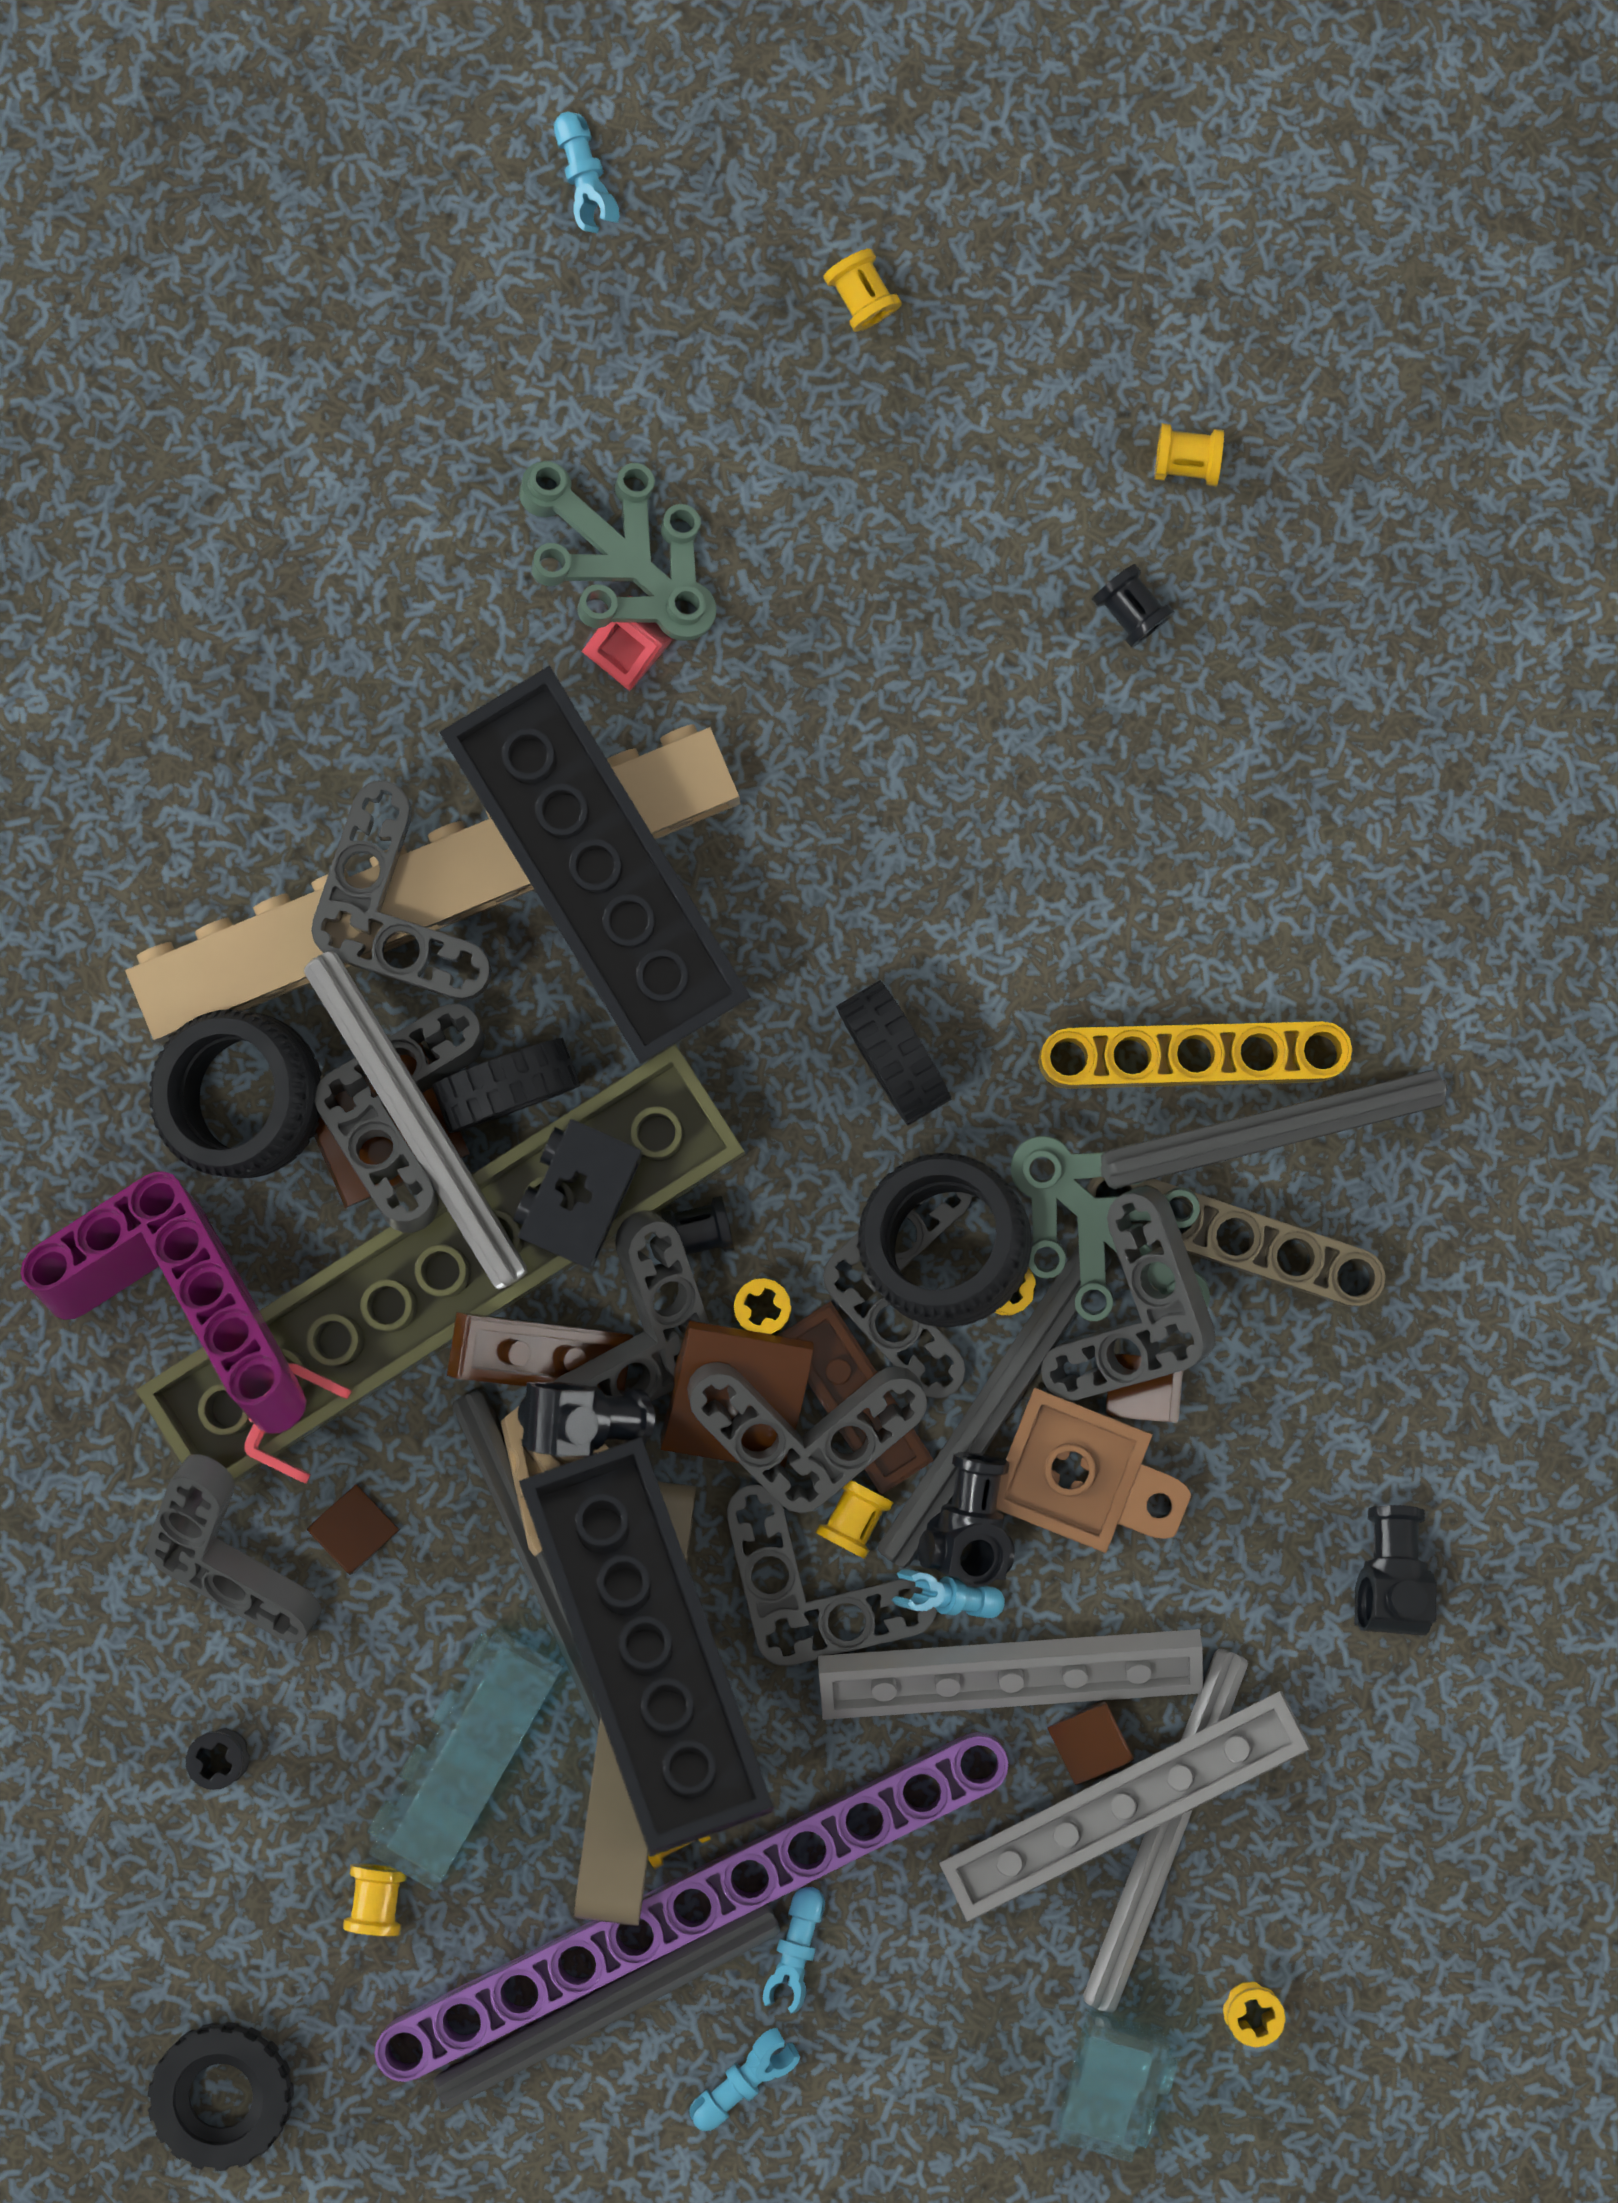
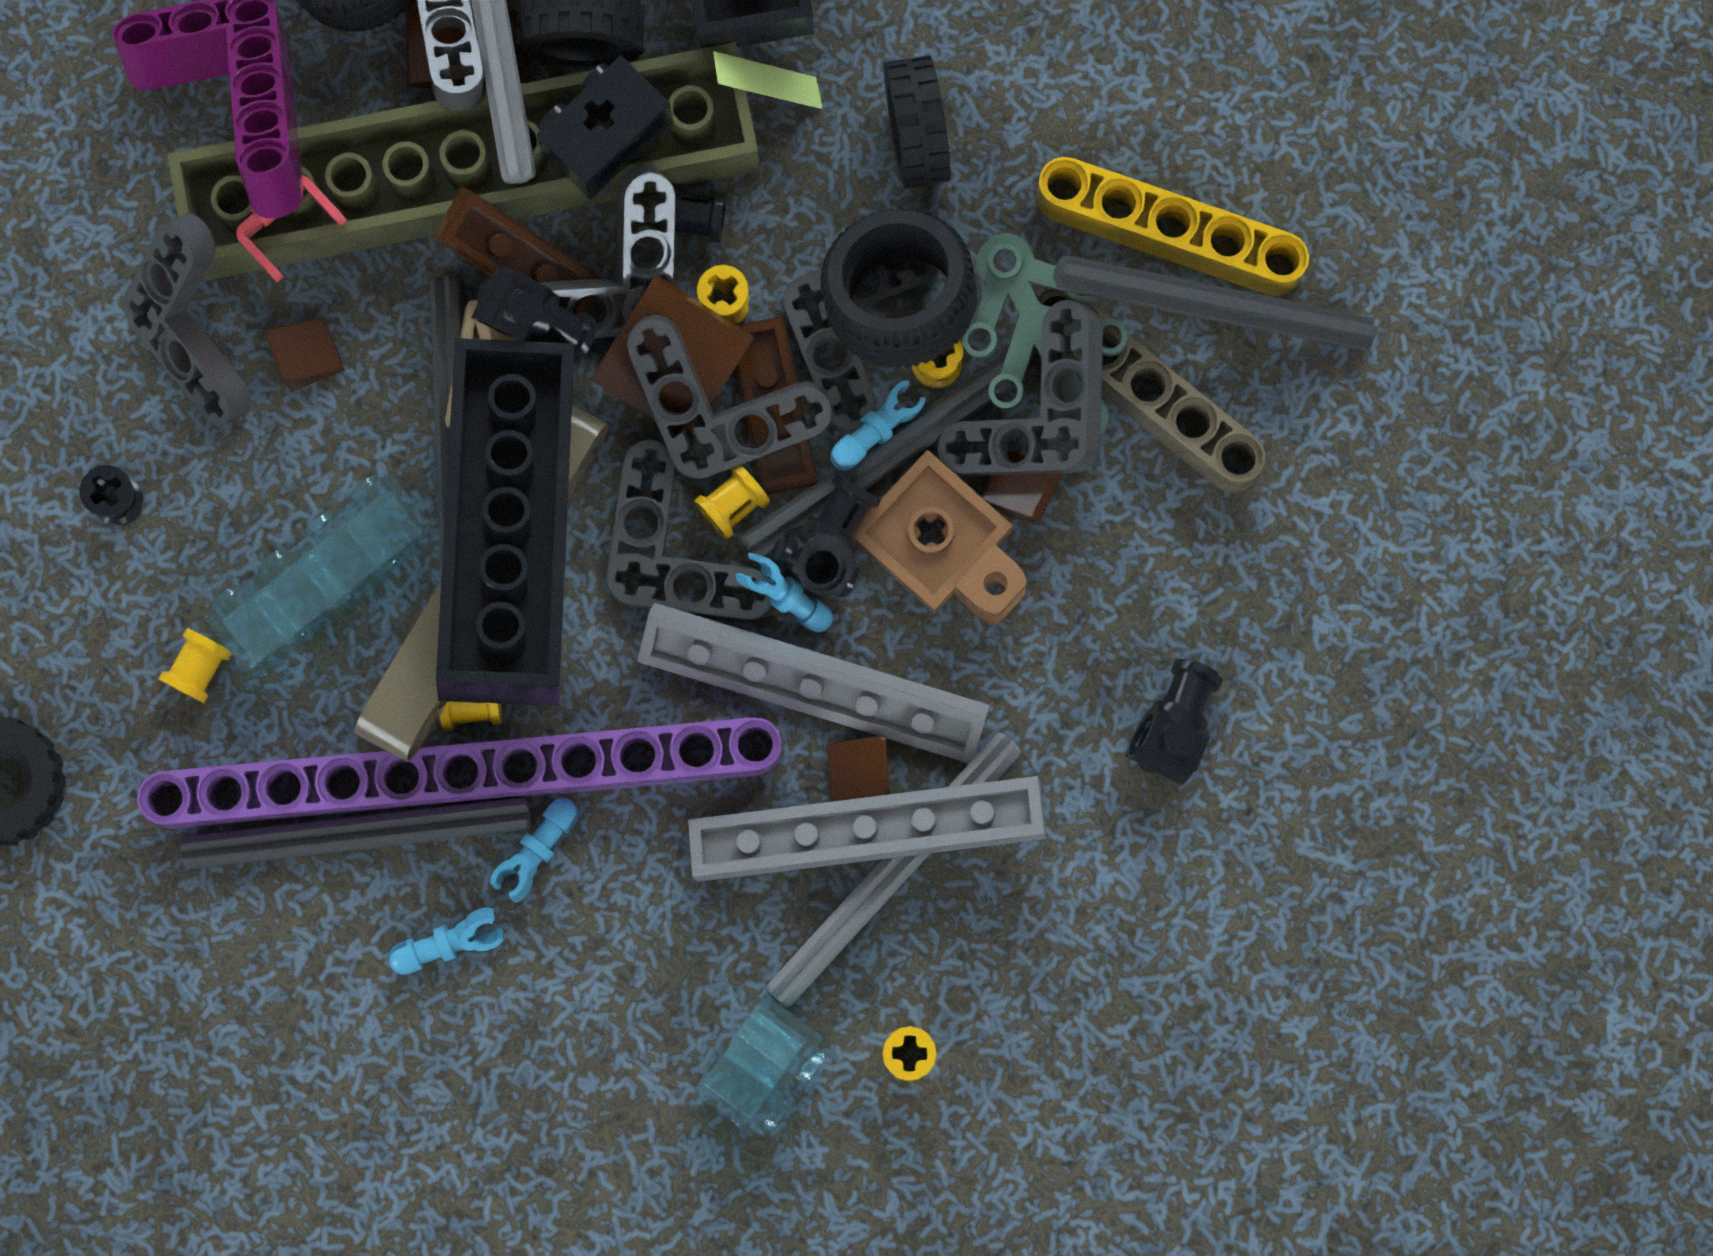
camera: 15 degrees right, 5 degrees down
(721, 1066) = (767, 80): none -> yellowish green sticker
(972, 1387) = (874, 429): none -> medium azure piece

